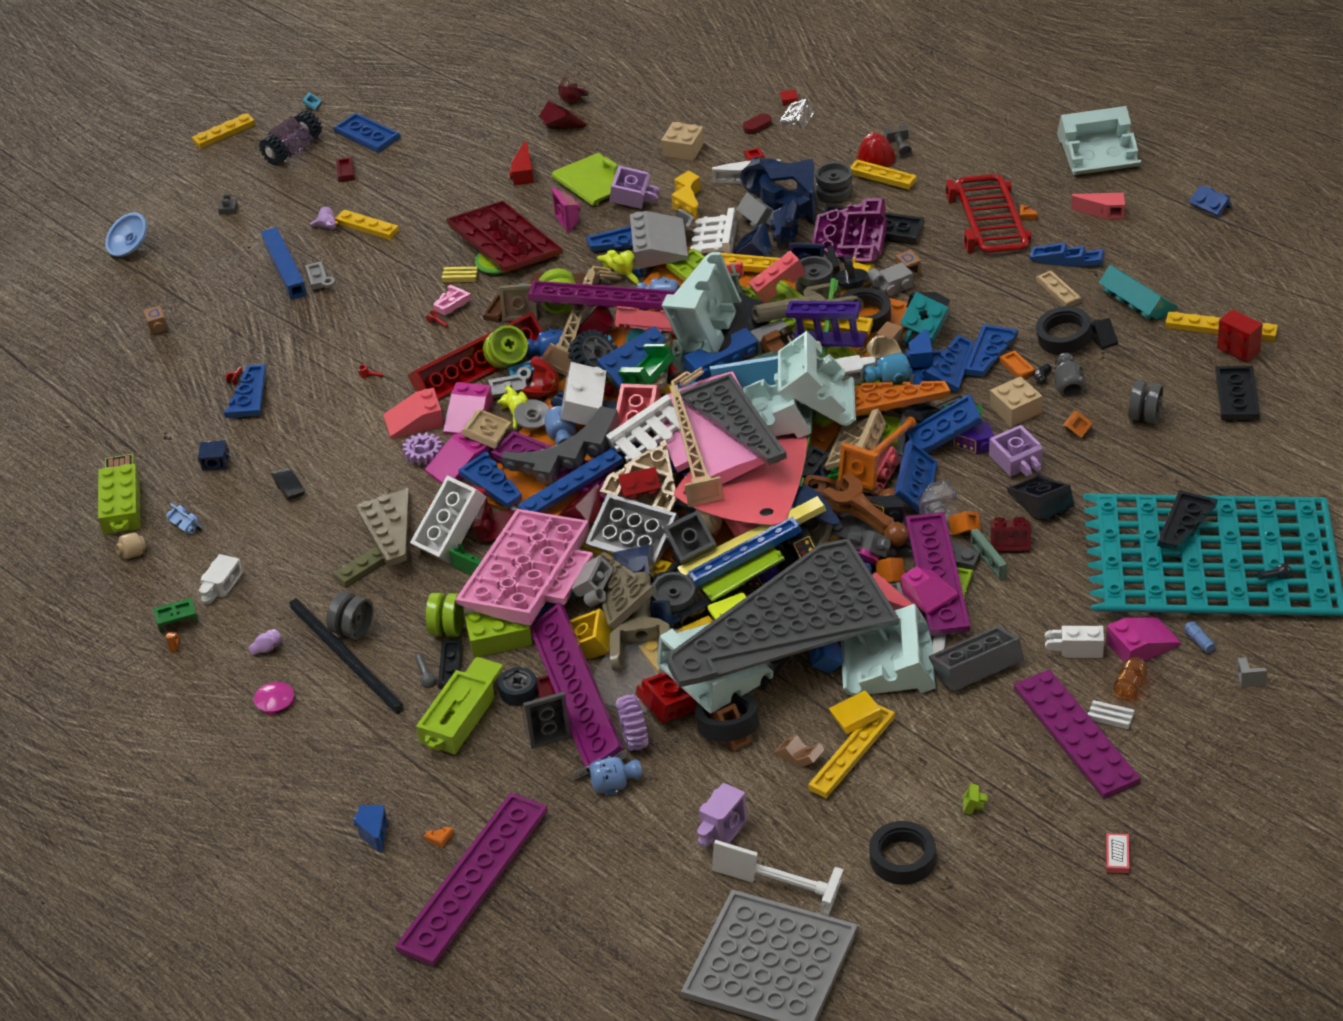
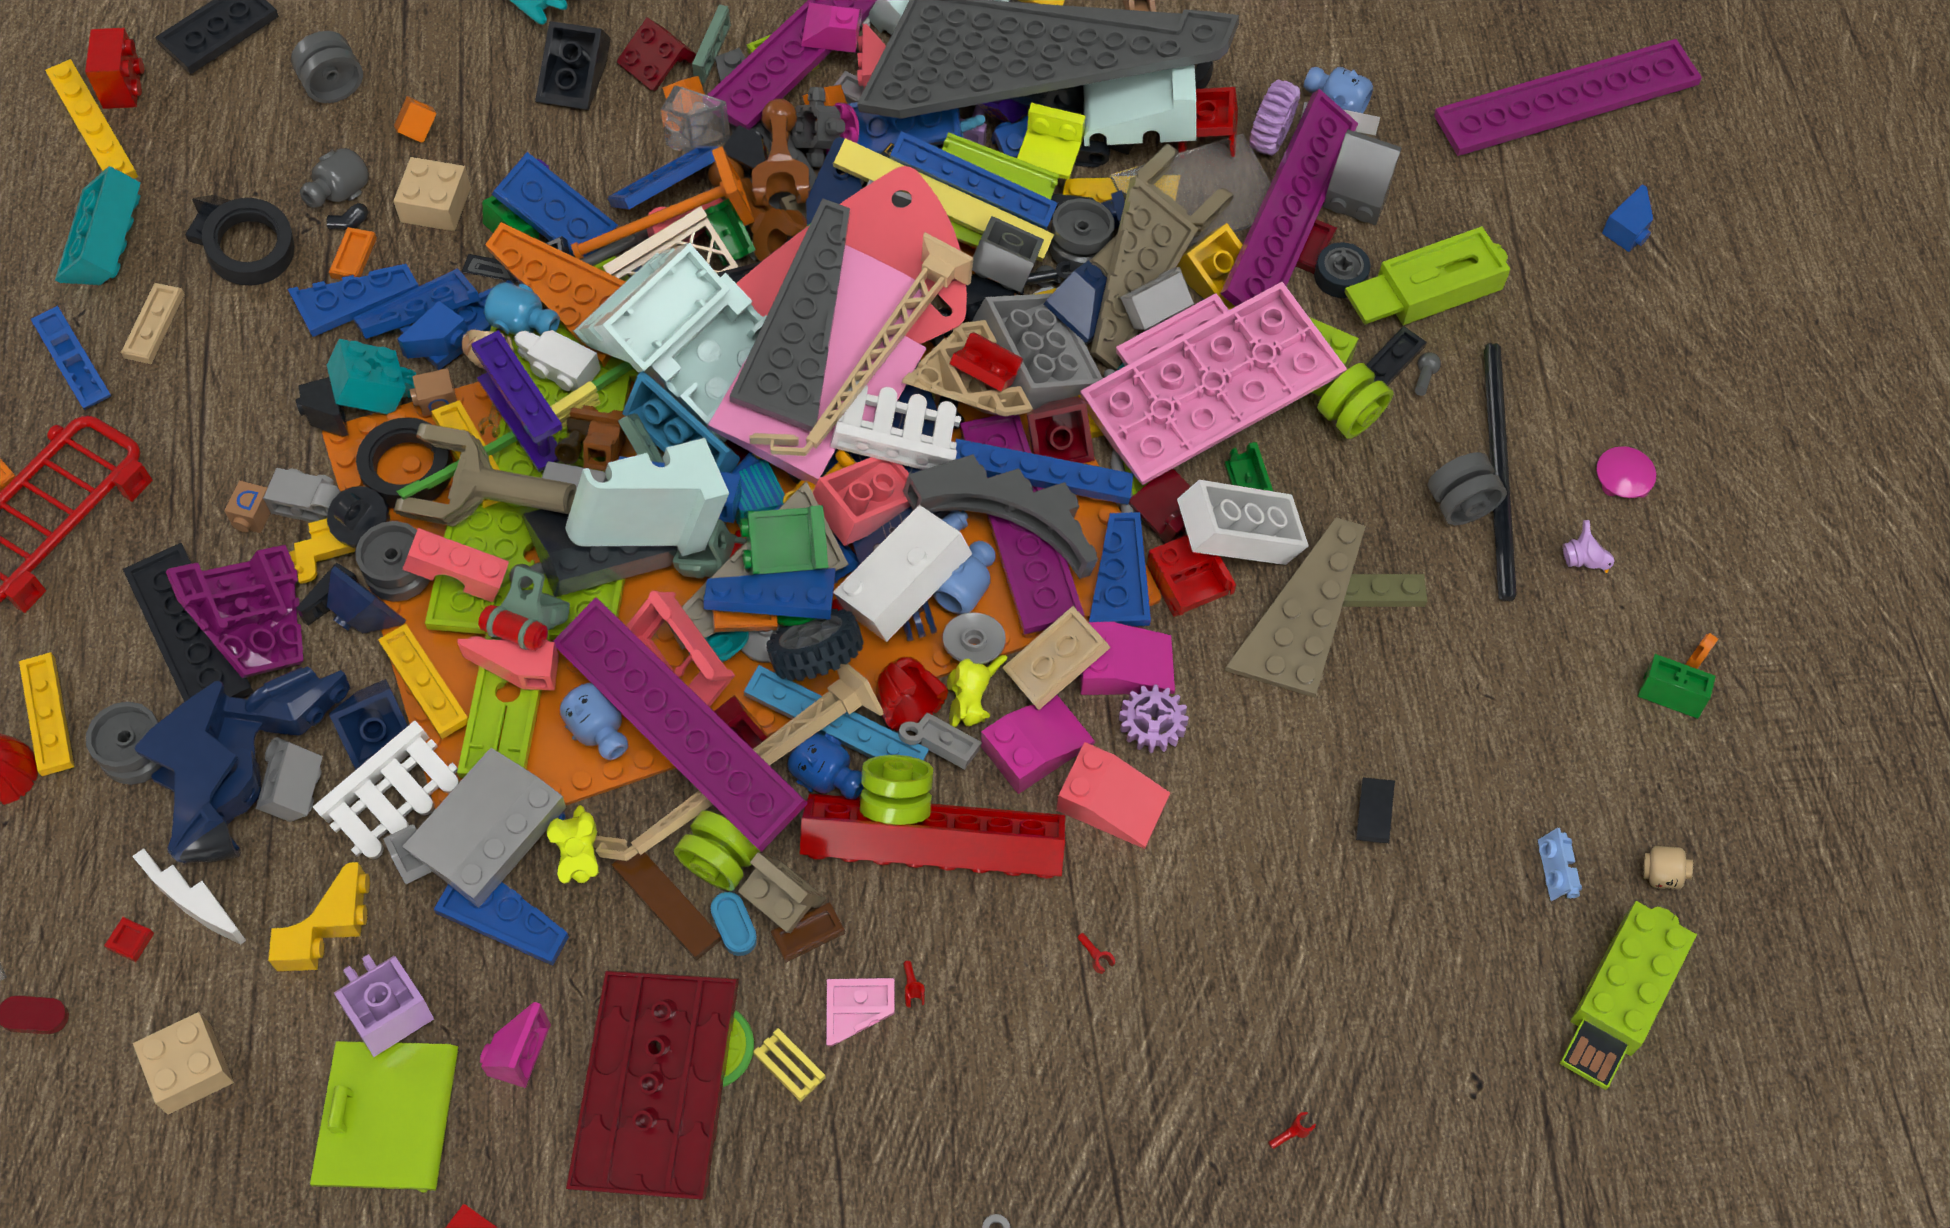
camera: 145 degrees left, 20 degrees up
(213, 455) = (1443, 954): dark blue head -> none
(219, 578) = (1579, 706): white hinge -> none
(248, 394) = (1305, 1056): blue wing -> none
(439, 837) = (1564, 169): orange tile -> none
(1016, 451) = (525, 126): lavender hinge -> none

